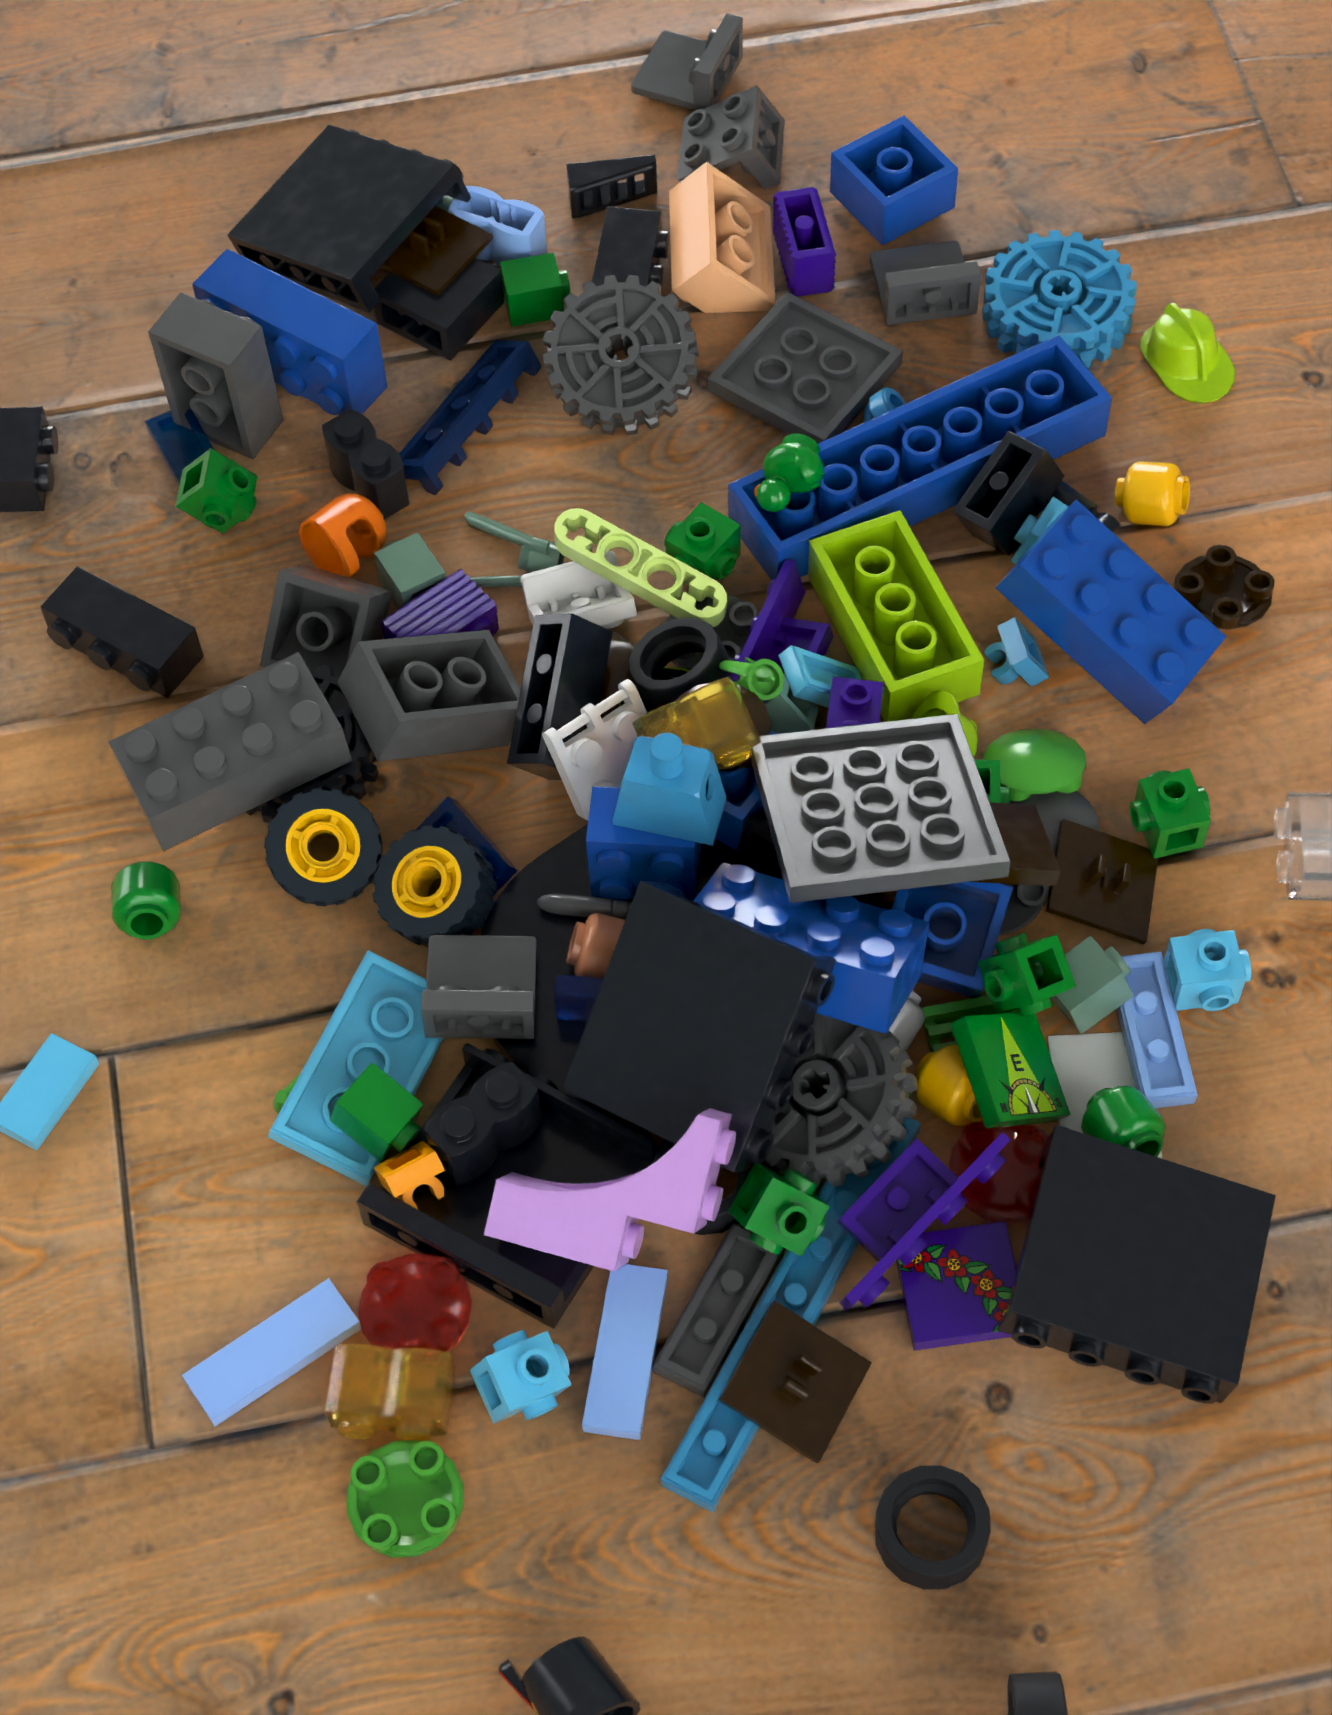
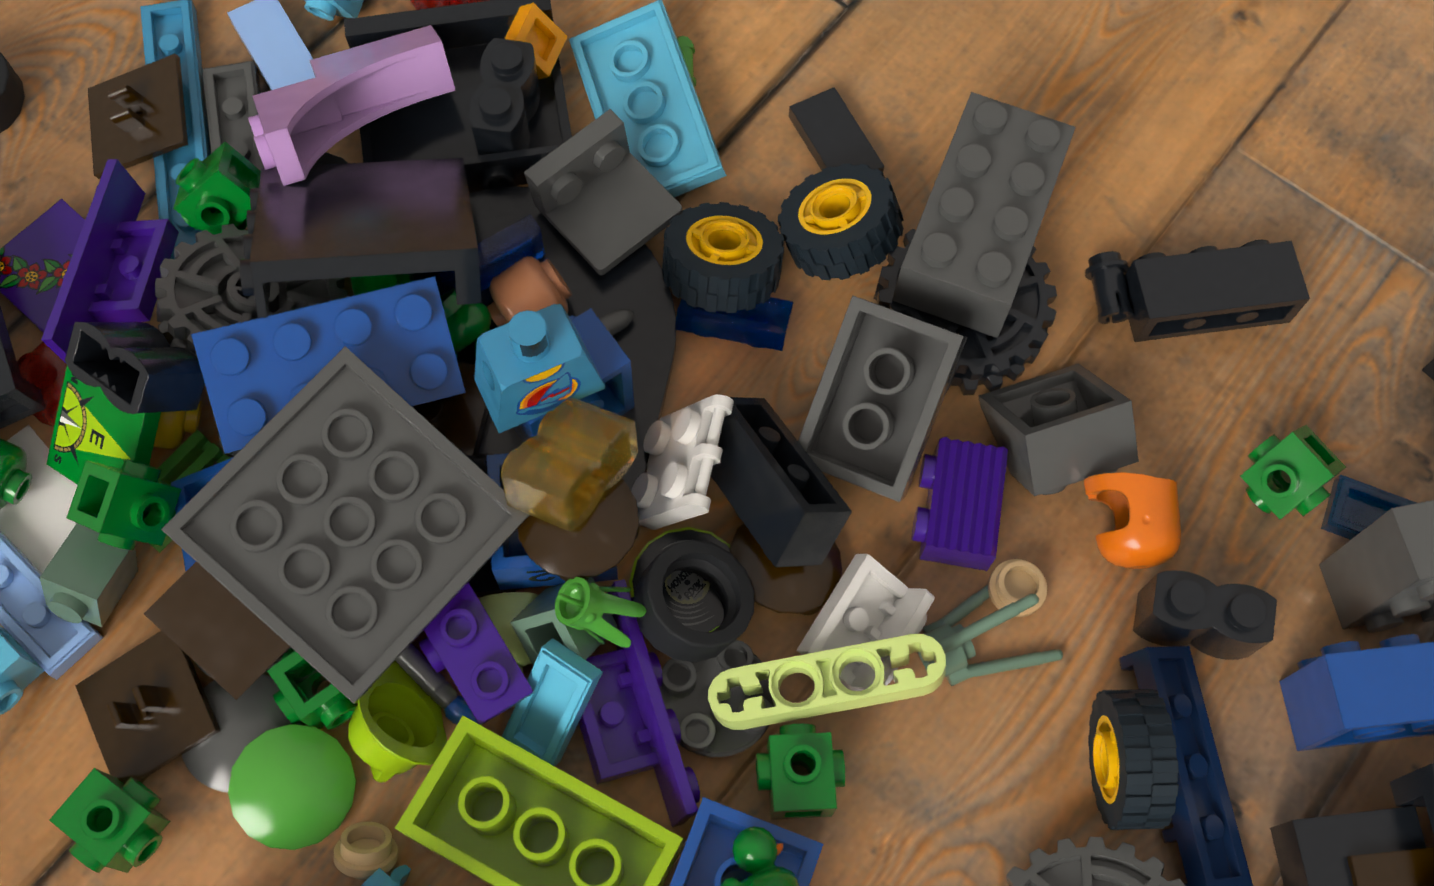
camera: 135 degrees right, 10 degrees up
(146, 900) = (934, 98): green head -> none
(183, 686) = (1110, 287): none -> black pin
(249, 938) = (832, 132): none -> black tile
(378, 1113) = (592, 56): green brick -> none
(407, 569) = (1041, 532): sand green brick -> none
(459, 555) = (1014, 581): none -> tan plate
(500, 415) = (1133, 759): none -> black wheel
(950, 1049) = (135, 367): none -> black brick
(1014, 696) = (365, 849): none -> tan plate

